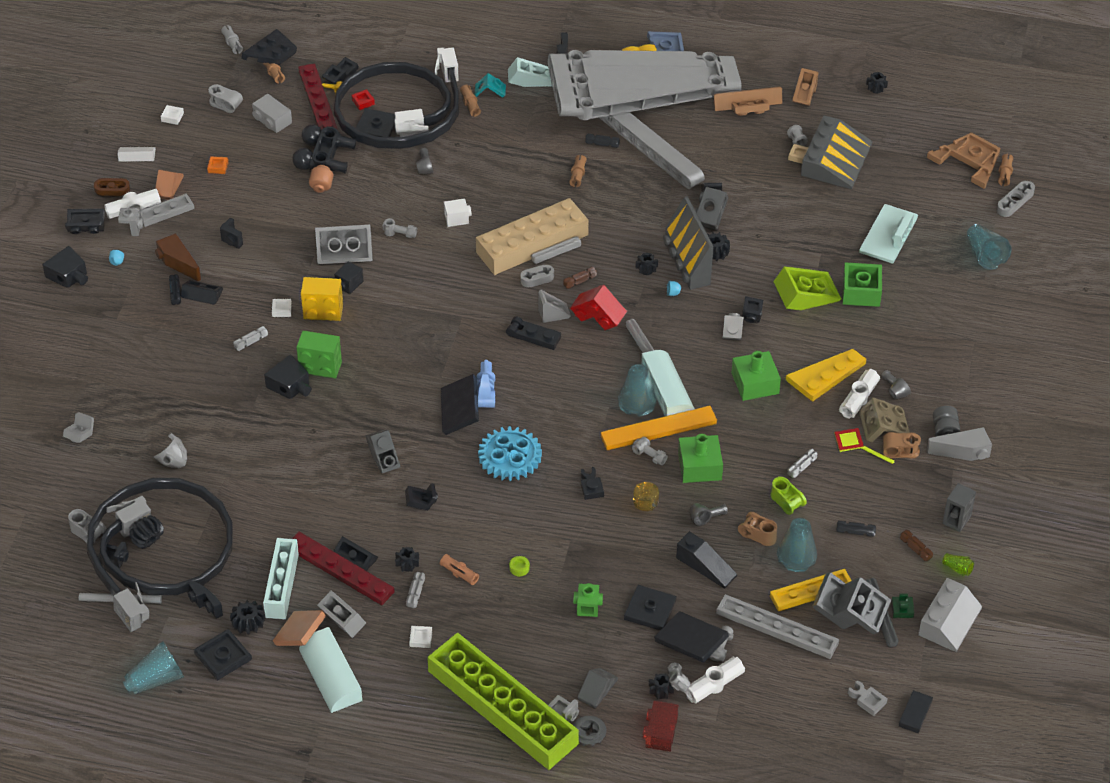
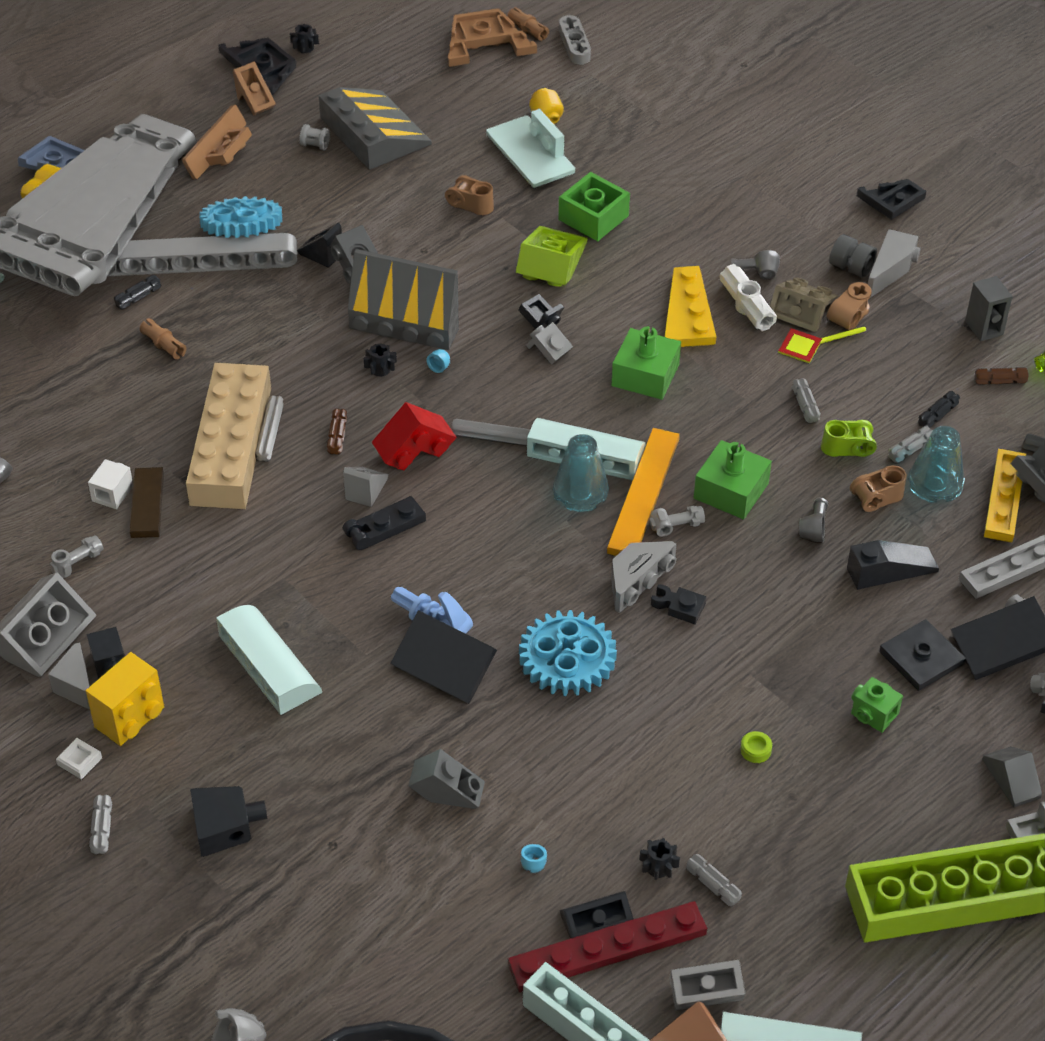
camera: 55 degrees left, 0 degrees up
(319, 353) = (223, 753): bright green brick -> none
(326, 269) = (70, 677): none -> light grey slope
(365, 509) = (528, 856): none -> medium azure hinge
(401, 338) = (266, 658): none -> light aqua brick
(420, 636) = (797, 918): white tile -> none
(421, 498) = (565, 783): black bracket -> none
(449, 563) = (737, 807): nougat pin -> none
(460, 234) = (147, 502): none -> dark brown tile
(537, 276) = (298, 469): light grey beam -> none
(593, 452) = (638, 569): none -> light grey slope
(646, 496) = (752, 559): clear yellow head -> none
(695, 144) = (241, 217): none -> medium azure gear
(797, 153) = (342, 150): tan plate -> none
(818, 529) = (909, 444): none -> light grey axle
(819, 229) = (473, 195): none -> medium nougat piece
(837, 78) = (270, 59): none -> black wing
(933, 218) = (548, 103): none -> yellow head
(988, 247) = (627, 89): clear light blue cone -> none
(1028, 419) = (893, 198): none -> black wing

